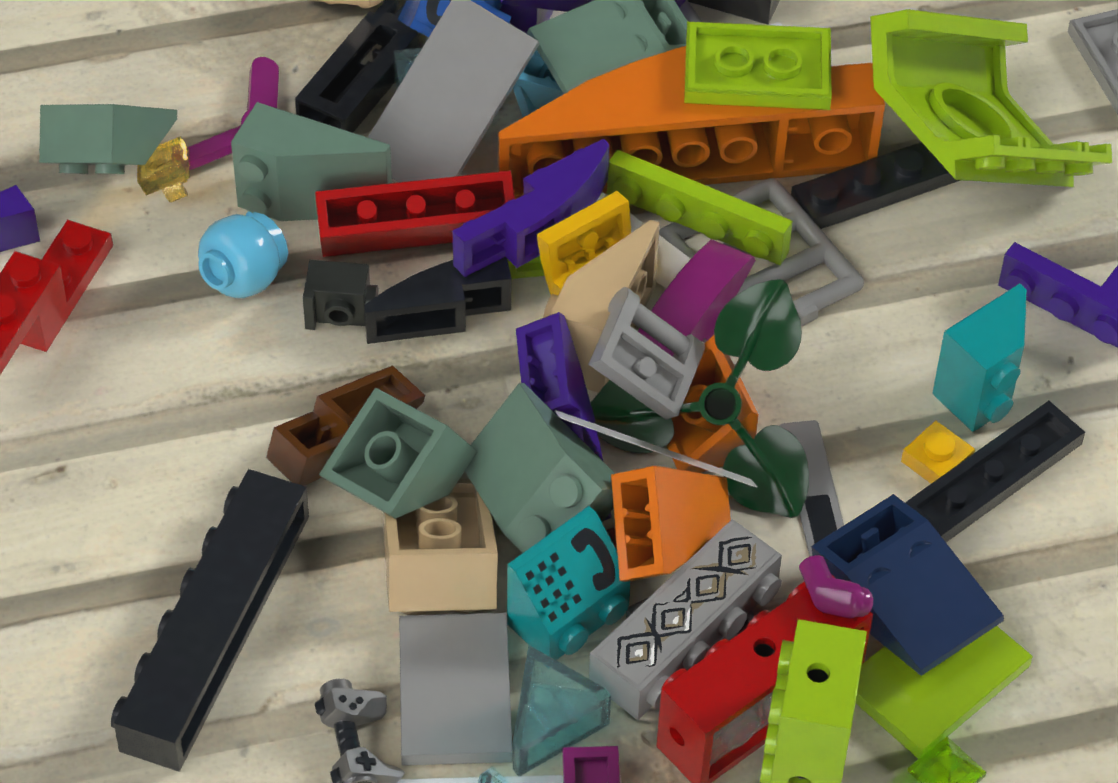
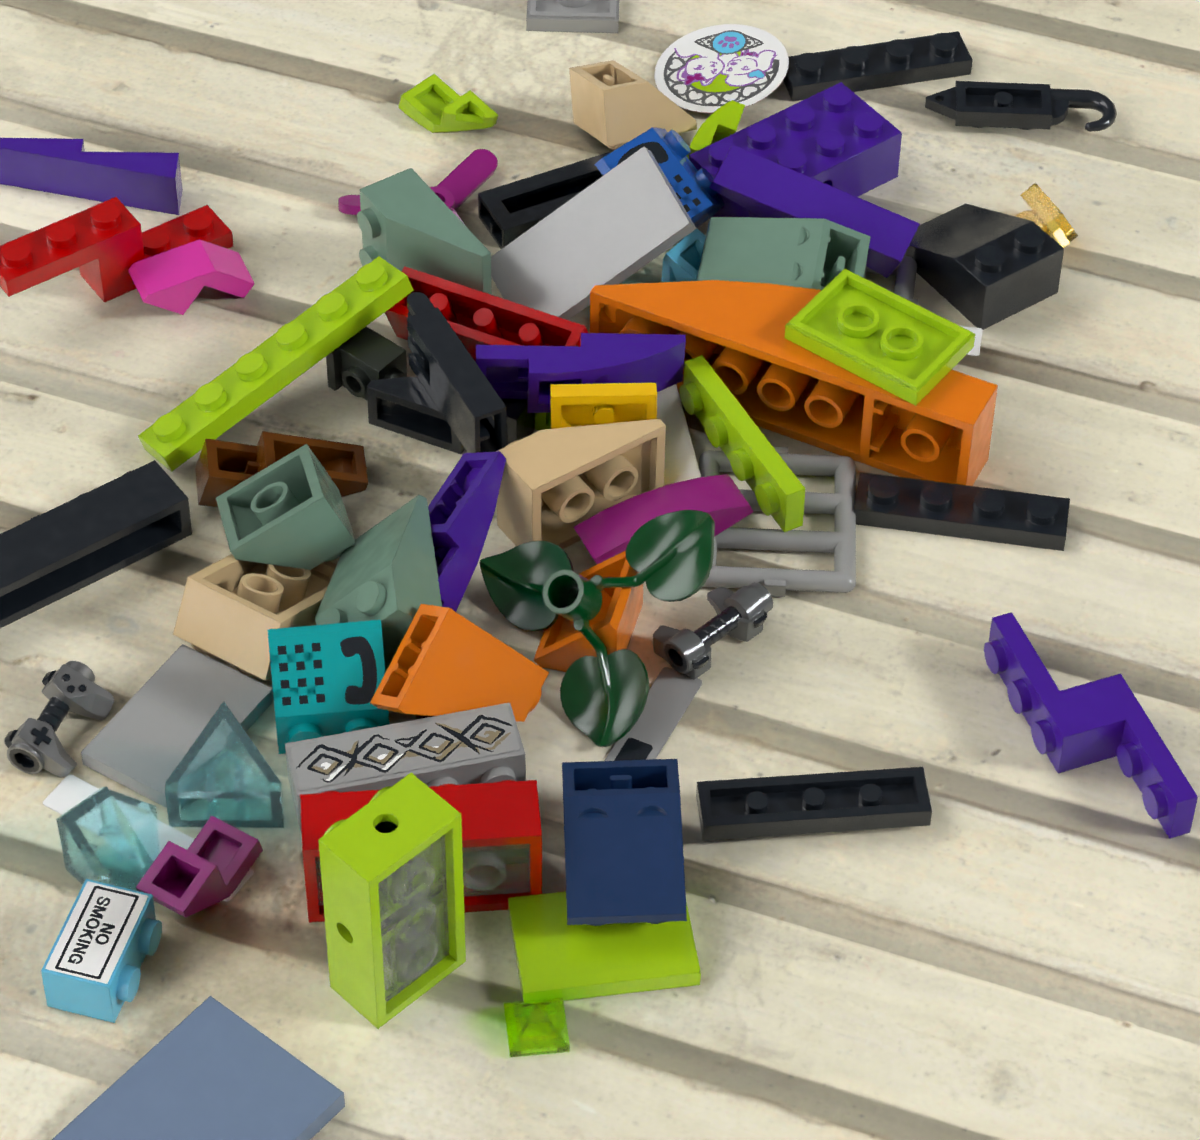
camera: 35 degrees right, 5 degrees down
(101, 136) = (283, 147): sand green slope -> none
(110, 289) = (178, 275): none -> dark pink slope
(166, 170) = (316, 200): clear yellow tile -> none
(190, 40) = (443, 110): none -> lime slope
(242, 254) = (302, 282): medium azure piece -> none
(269, 333) = (275, 363): none -> lime plate
(447, 269) = (454, 379): none -> black hinge
(640, 364) = (540, 533): light grey plate -> none
(655, 448) = (500, 613): white sticker -> none
(796, 400) = (738, 615): none -> dark grey piece
(832, 594) = (513, 796): magenta arm -> none
(935, 452) = (781, 755): yellow plate -> none
(952, 92) = (1073, 465): lime panel -> none
(983, 360) = (889, 695): teal slope -> none

